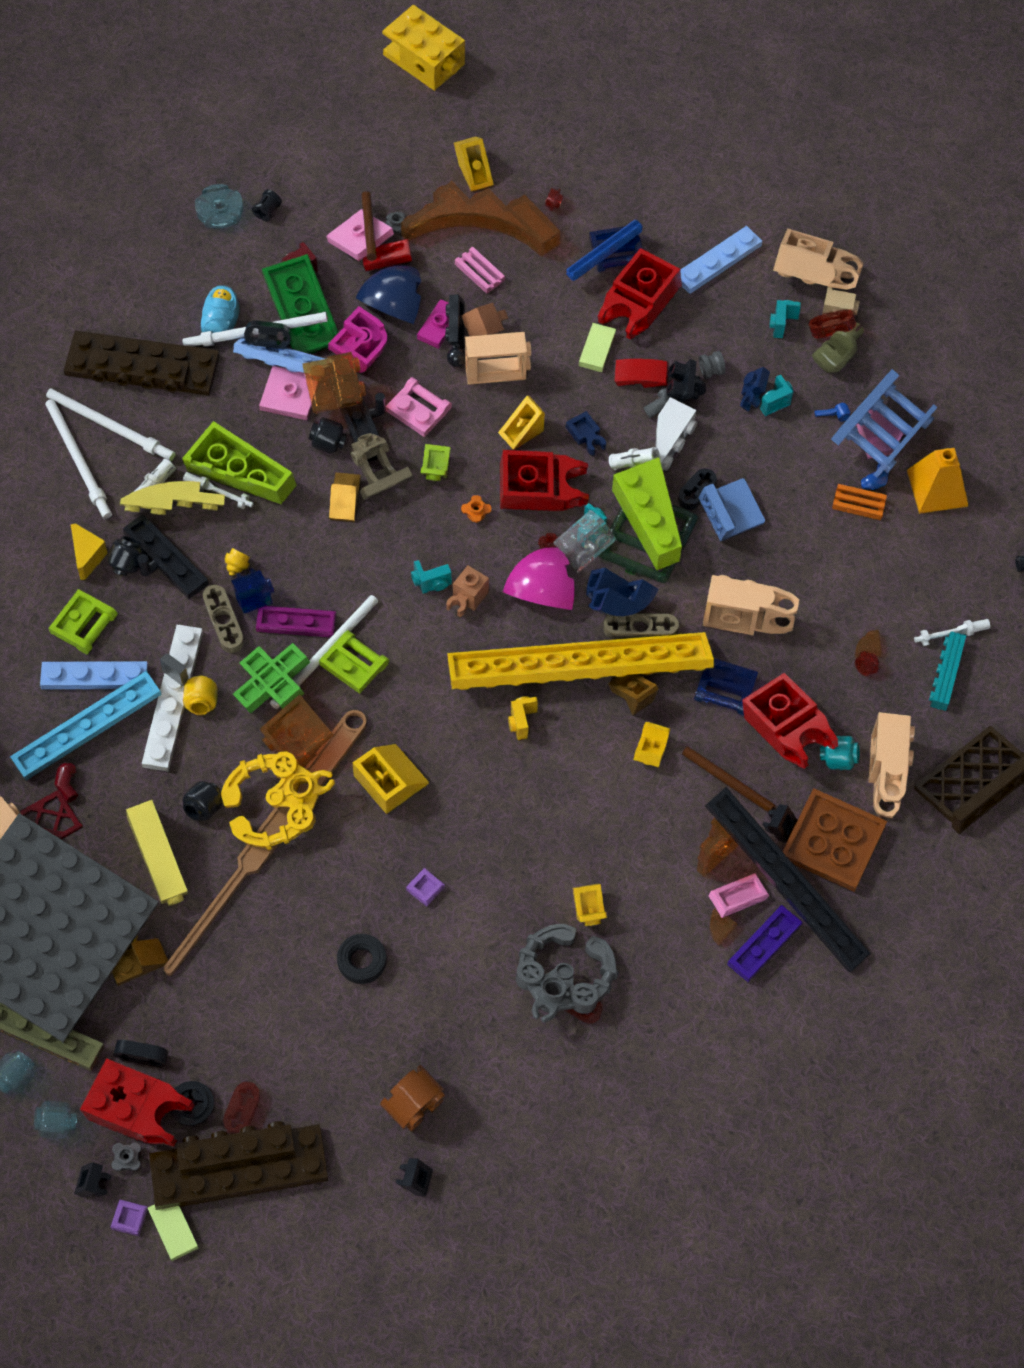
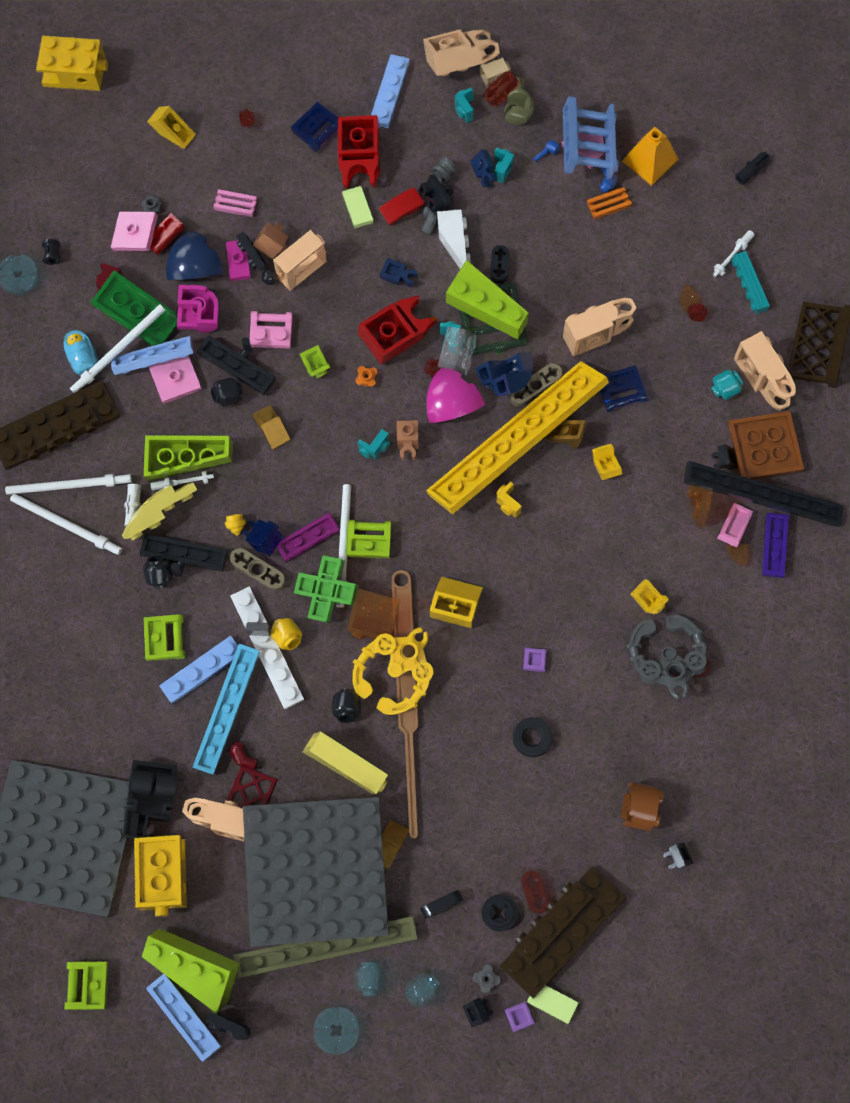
camera: 30 degrees left, 10 degrees up
(88, 550) = (127, 585): yellow slope -> none
(140, 1111) = (474, 938): red brick -> none
(267, 334) = (130, 346): black beam -> none
(334, 382) = (205, 351): clear orange plate -> none
(368, 447) = (288, 397): dark tan tile -> none
(369, 226) = (138, 221): reddish brown bar -> none
(484, 210) = (205, 157): clear orange arch -> none
(523, 424) = (352, 295): yellow slope -> none
(604, 250) = (312, 134): blue axle -> none
(633, 457) = (455, 263): white pin -> none
(728, 779) = (672, 451): reddish brown bar -> none
(731, 508) = (534, 263): medium blue bracket -> none
(788, 719) = (682, 385): red brick -> none

